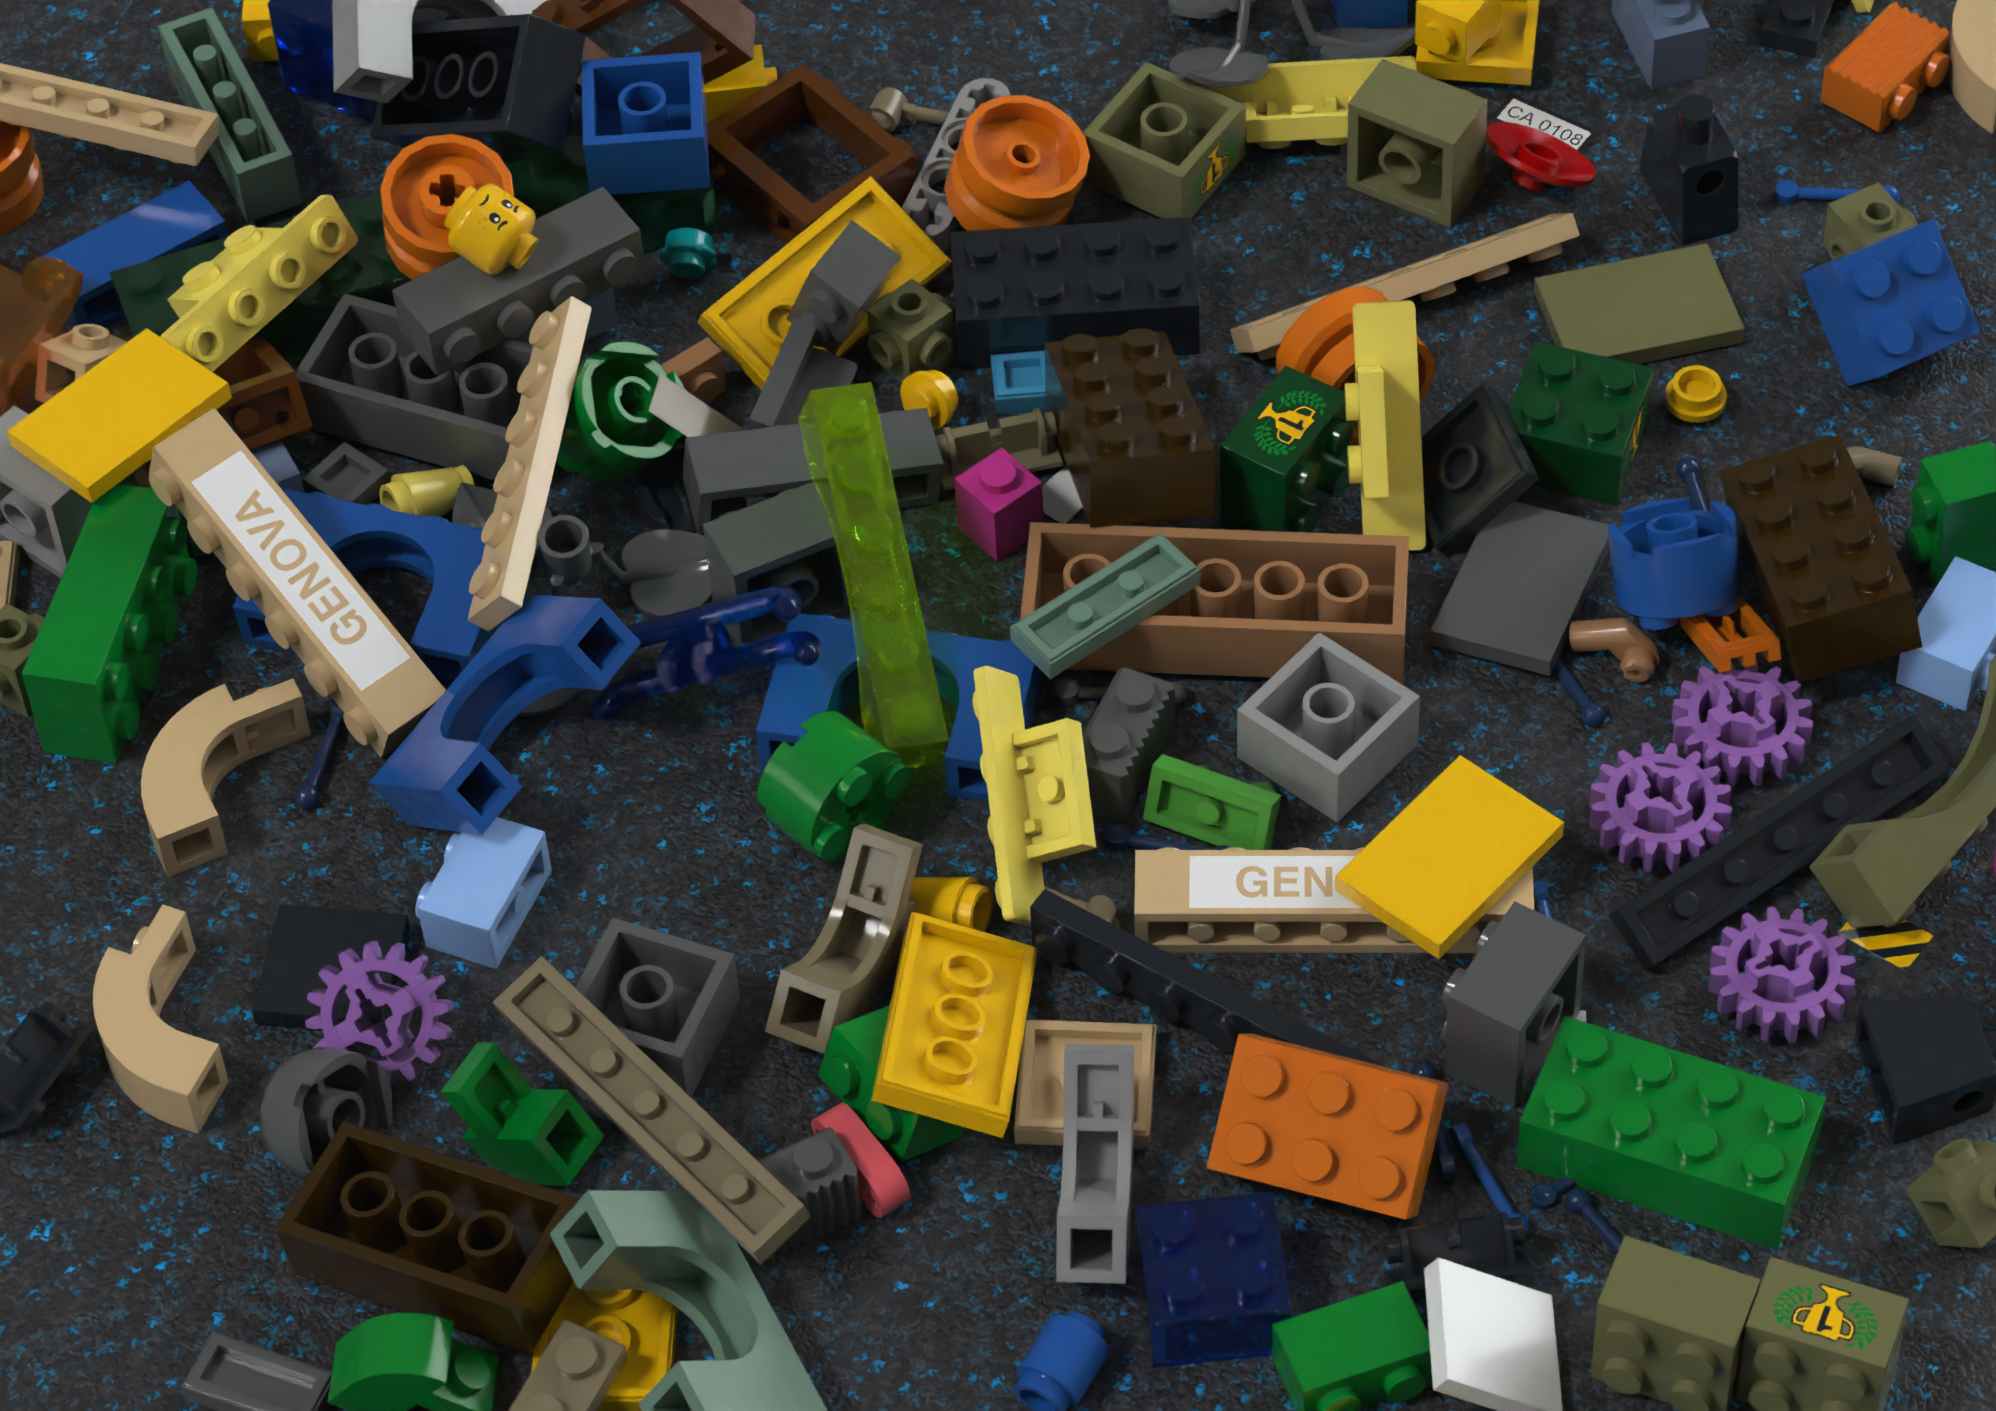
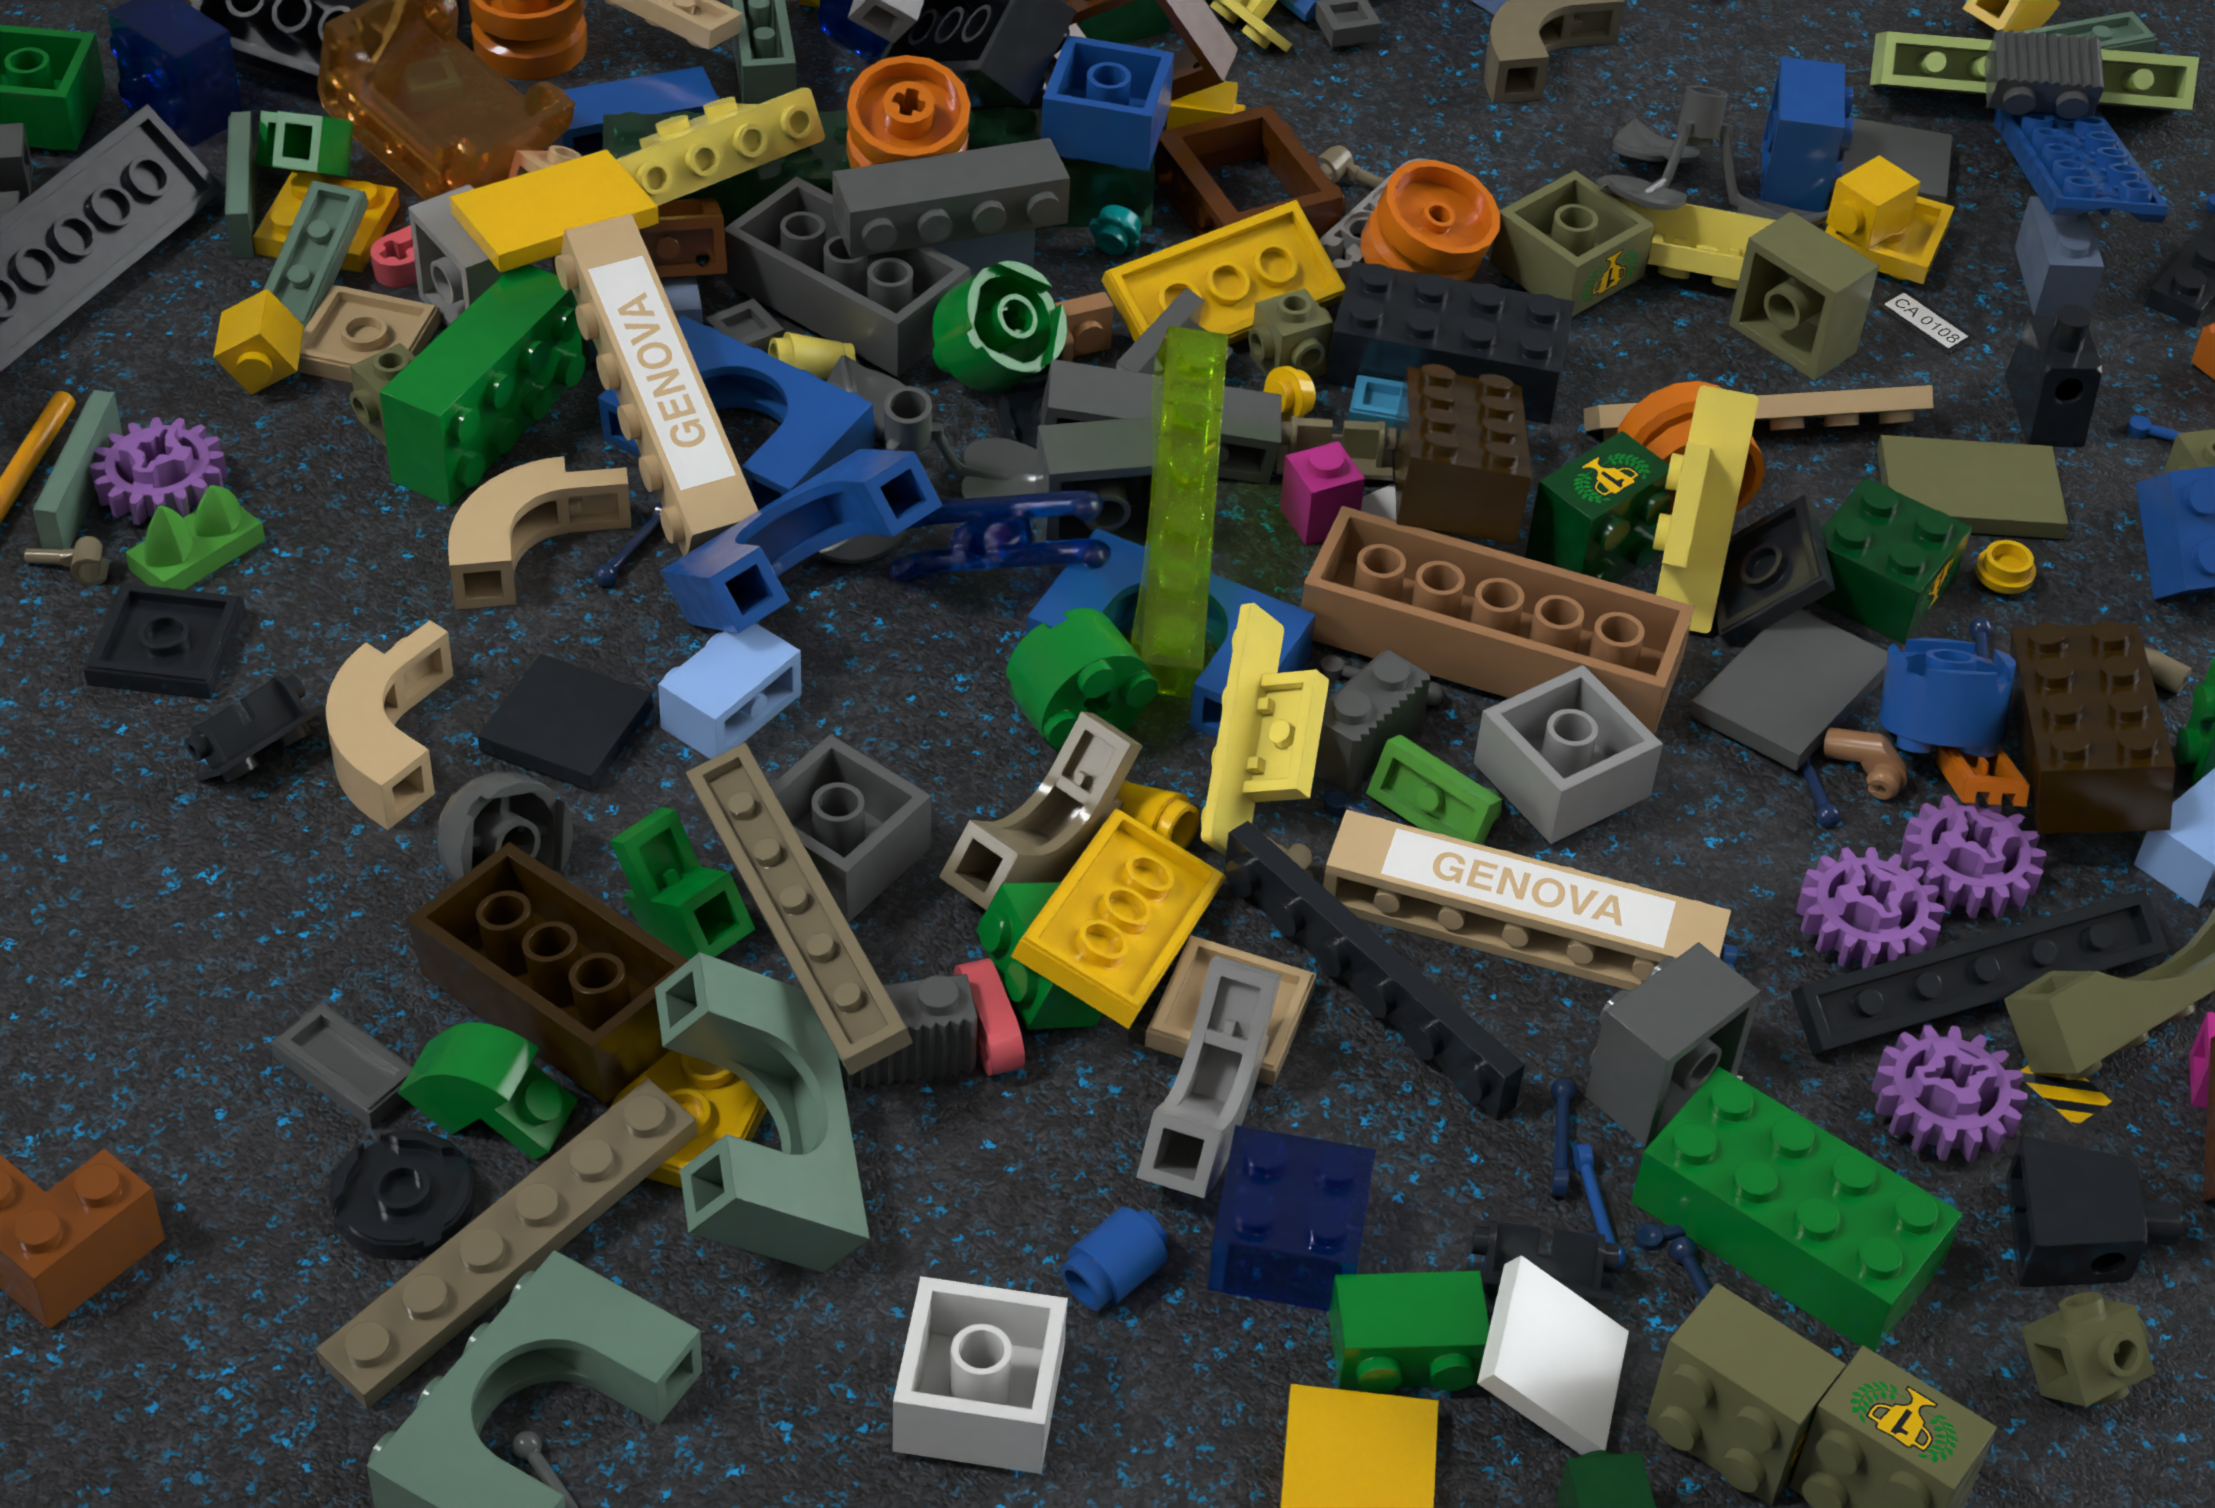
camera: 10 degrees right, 5 degrees down
(366, 990) = (577, 740): medium lavender gear -> none
(491, 229) = (935, 138): yellow head -> none
(527, 473) = (894, 350): tan plate -> none
(686, 411) = (1058, 338): sticker -> none
(844, 286) = (1239, 271): dark grey brick -> none
(1105, 605) = (1387, 589): sand green tile -> none
(1328, 1125) = (1451, 1104): orange brick -> none
(1449, 856) = (1647, 893): yellow tile -> none
(1538, 157) = (1912, 340): red dish -> none

